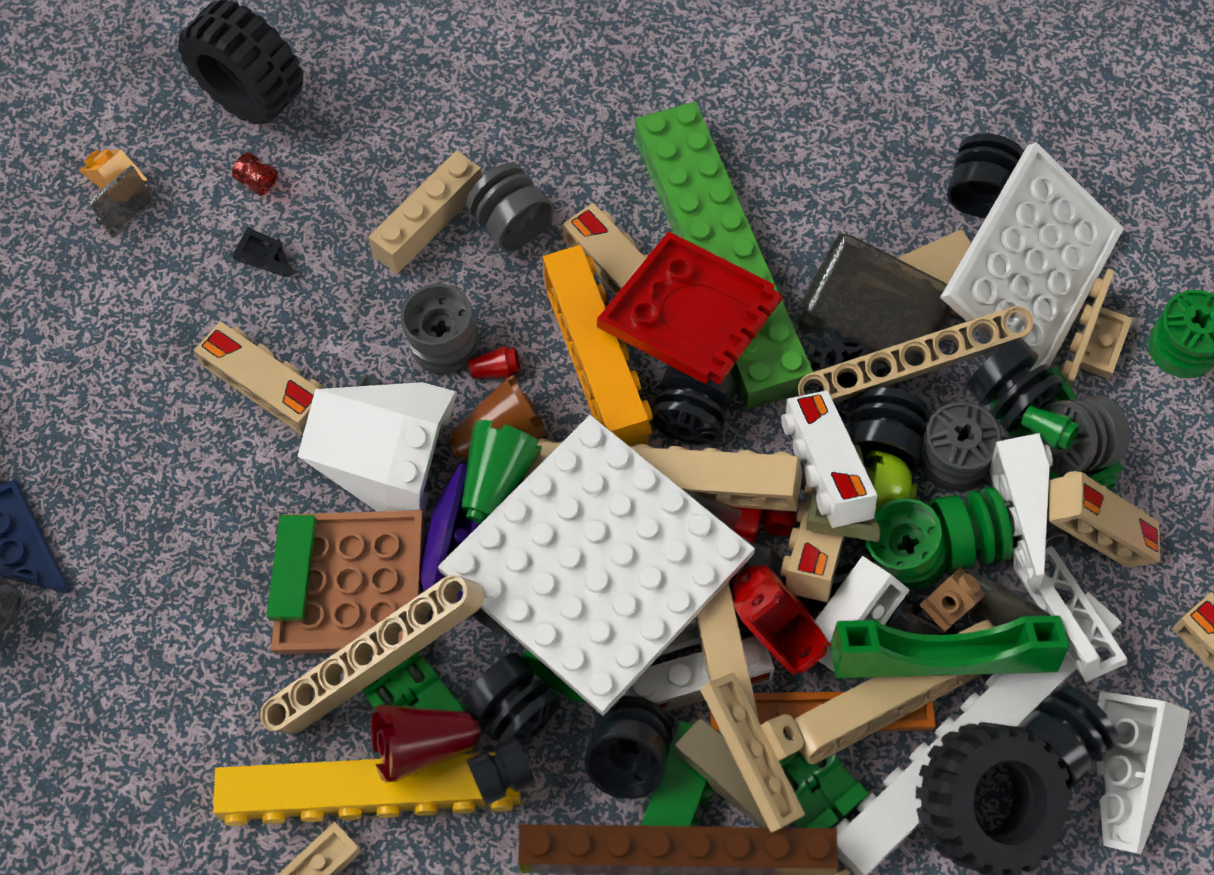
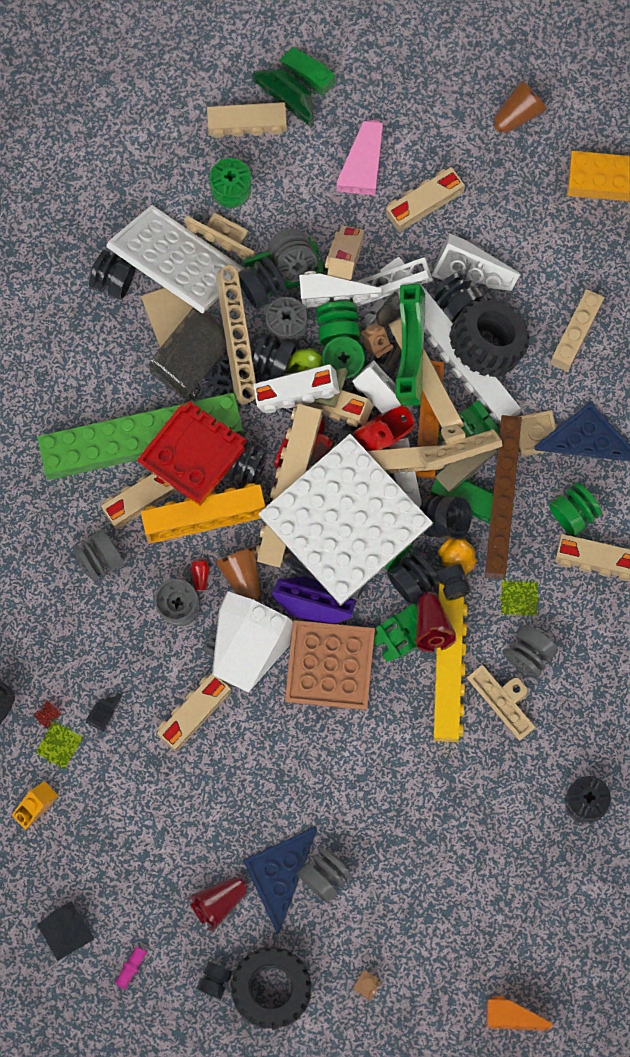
camera: 85 degrees left, 10 degrees up
(121, 201) = (62, 797): clear smoke piece -> none
(211, 200) = (59, 745): none -> clear neon green piece
(292, 568) = (320, 694): green tile -> none
(387, 655) = (391, 653): tan beam -> none
(424, 212) = (90, 608): tan brick -> none
(495, 467) = (281, 572): green cone -> none
(562, 786) = (458, 552): none -> light orange hair
(1054, 428) = (295, 268): green cone -> none

